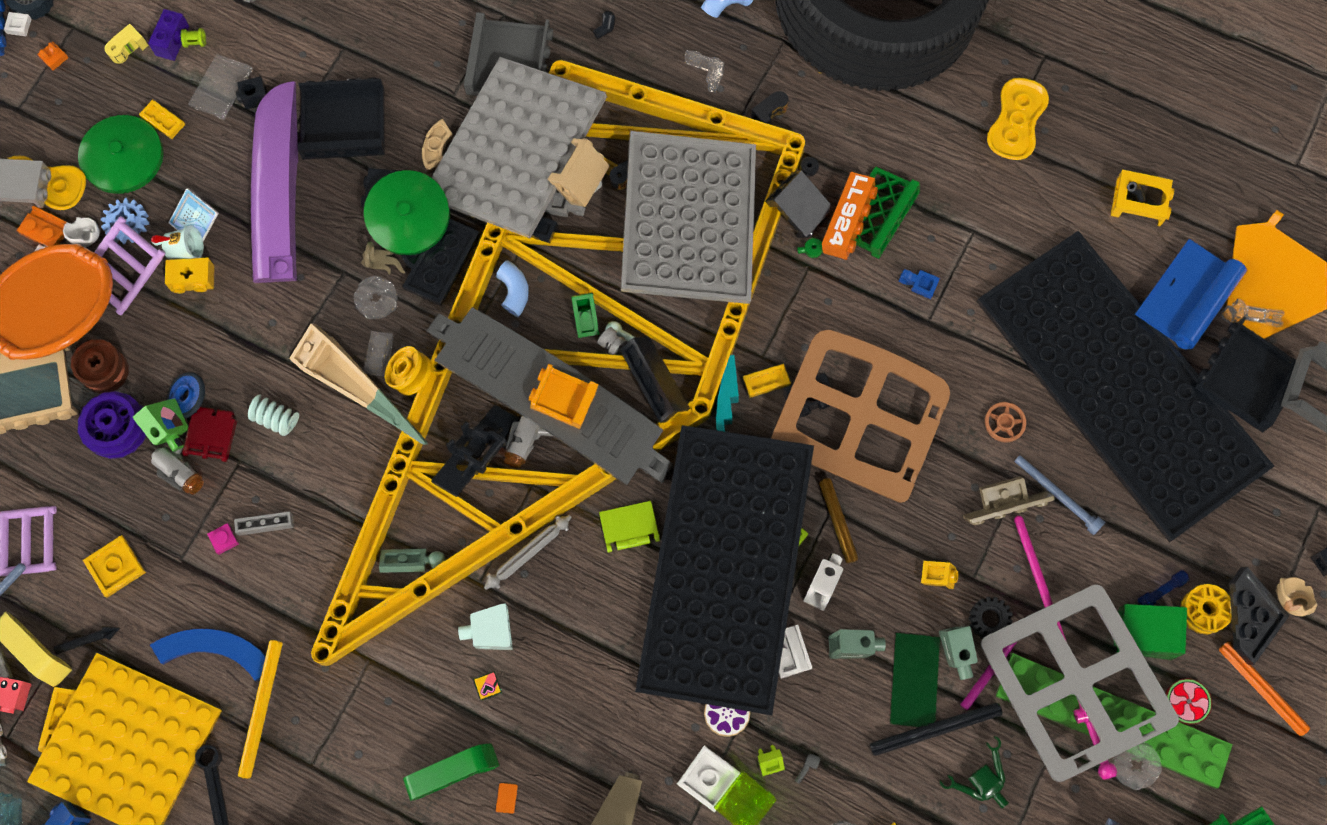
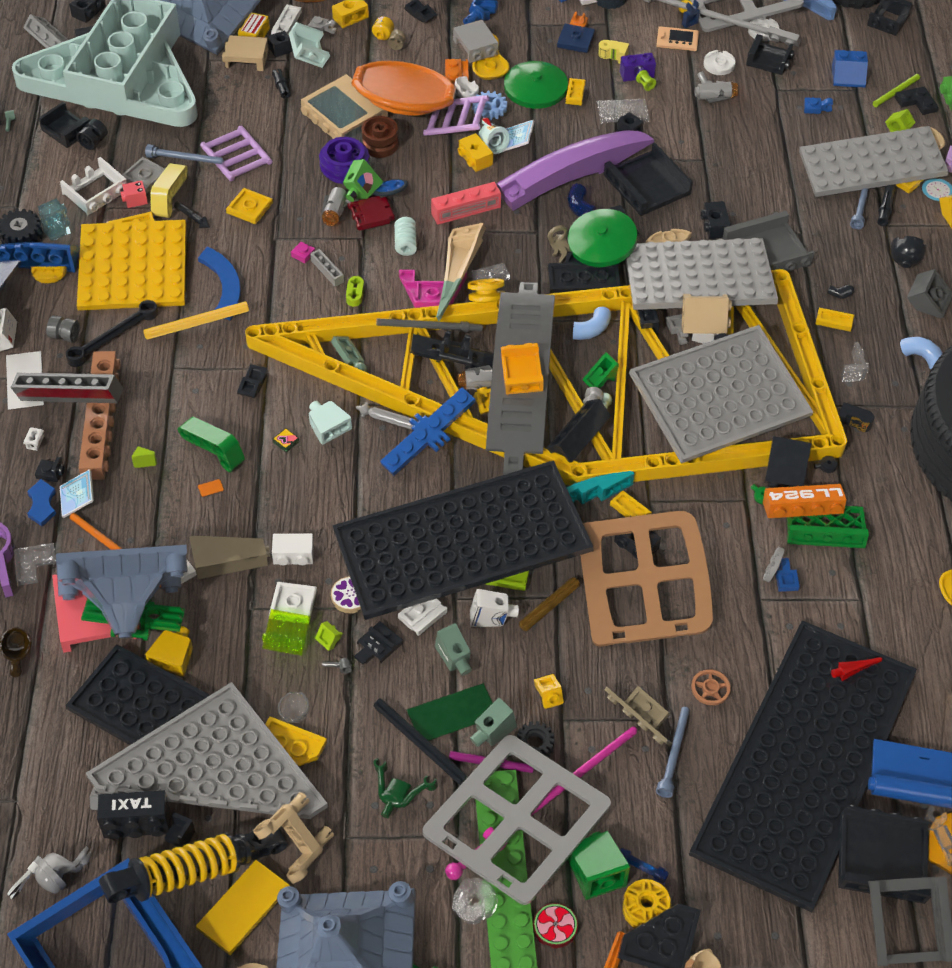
camera: 60 degrees right, 20 degrees down
(75, 72) = (575, 38): none -> dark blue plate
(262, 325) = (465, 203): none -> coral brick
(319, 505) = (354, 291): none -> lime beam
(334, 209) = (576, 200): none -> clear blue cylinder
(367, 437) = (425, 292): none -> dark pink wing
(373, 309) = (528, 262): clear plate -> none
(385, 685) = (253, 381): none -> black slope
(433, 77) = (715, 219): none -> black brick
(437, 421) = (462, 326): none -> dark grey bar
(552, 449) = (482, 397): none -> yellow bracket
(568, 531) = (428, 431): none -> blue hinge
(629, 526) = (457, 471): lime piece -> none
(638, 53) = (834, 319): none -> yellow plate
(643, 747) = (292, 549): none -> white brick
(800, 714) = (378, 642): none -> black piece
(908, 287) = (774, 564): none -> light grey wheel
(1055, 290) = (847, 669): none -> red piece

